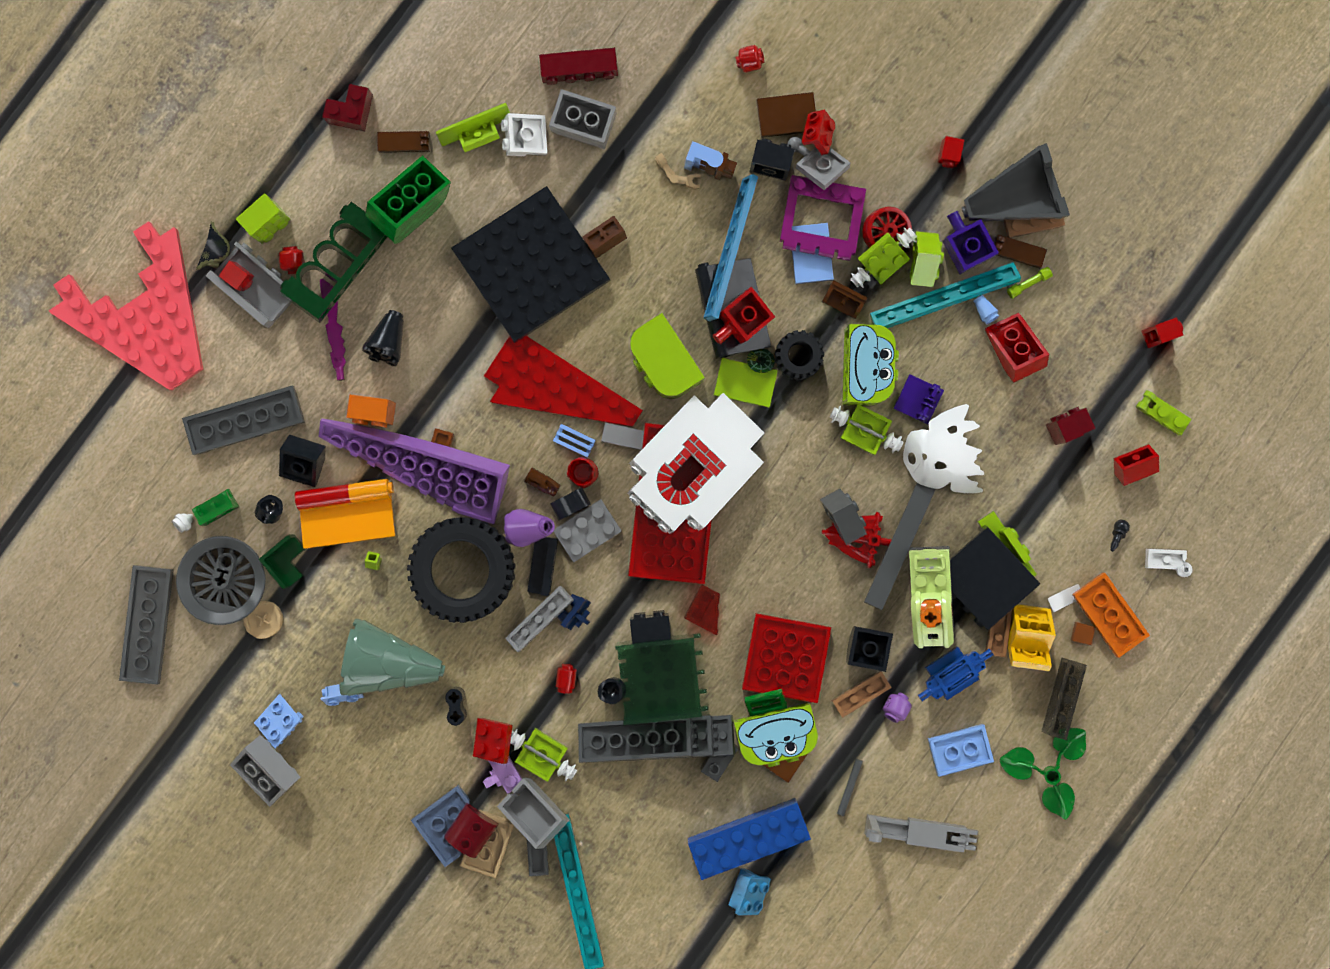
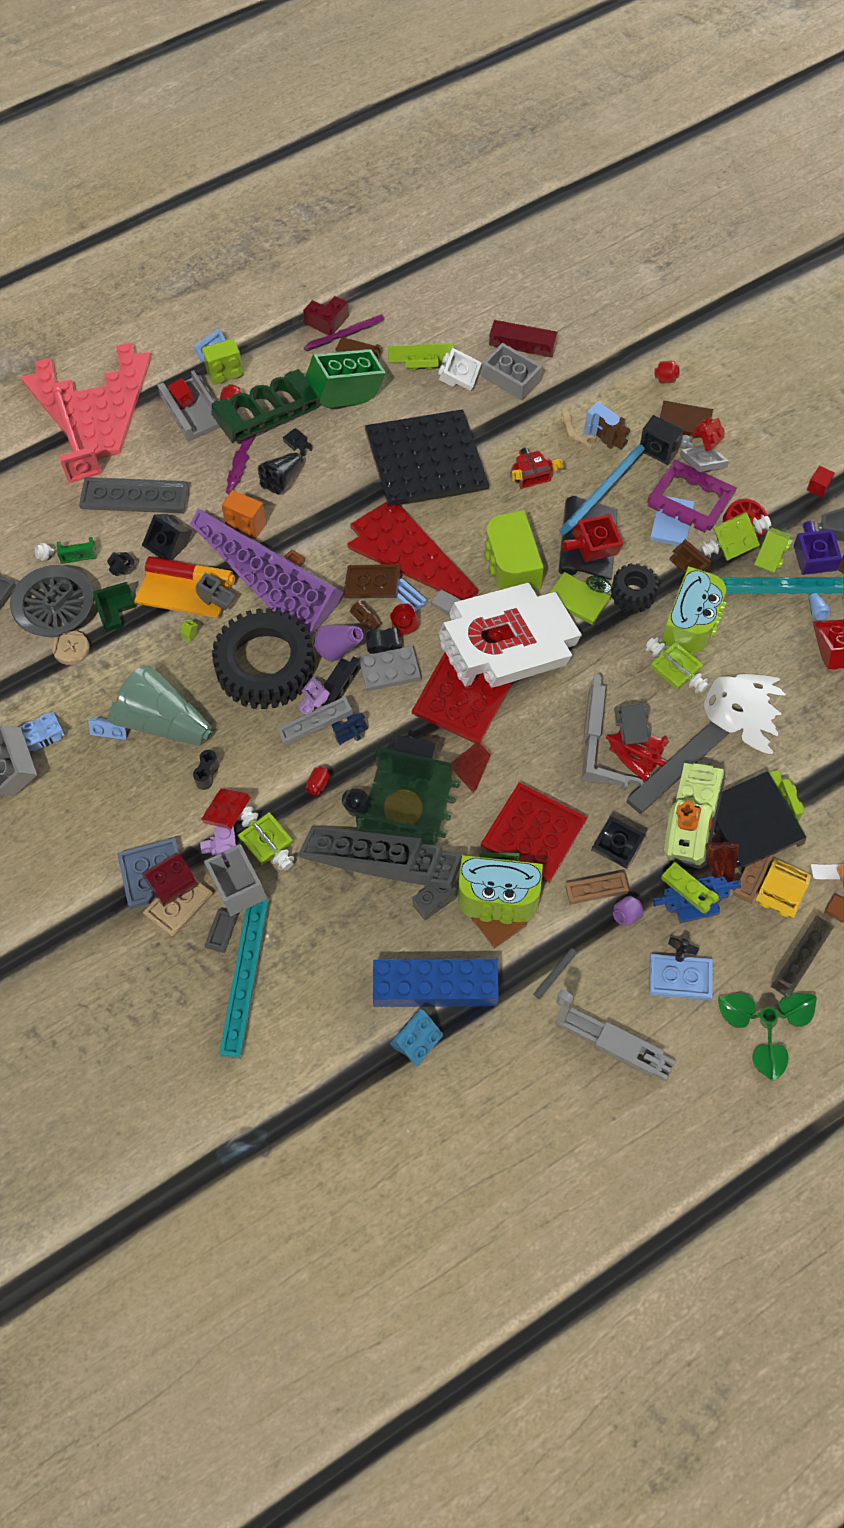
camera: 25 degrees right, 25 degrees down
(171, 407) = (79, 462): none -> coral tile
(215, 250) = (171, 371): black hat -> none
(237, 195) = (215, 337): none -> light blue plate
(376, 124) = (352, 328): none -> magenta sword
(382, 514) = (210, 591): none -> dark grey brick
(384, 288) = (297, 440): none -> black plate
(529, 592) = (315, 696): none -> lavender hinge
(532, 438) = (372, 581): none -> reddish brown tile
(605, 237) = (497, 456): reddish brown hinge -> none
(647, 240) = (533, 468): none -> red torso
(657, 680) = (403, 807): none -> clear yellow tile
(809, 538) = (592, 733): none -> light grey hinge
(918, 399) = (734, 657): dark purple hinge -> none
(948, 677) = (689, 887): none -> lime plate
(956, 725) = (683, 947): none -> black piece
(970, 632) = (722, 859): none -> clear red wing

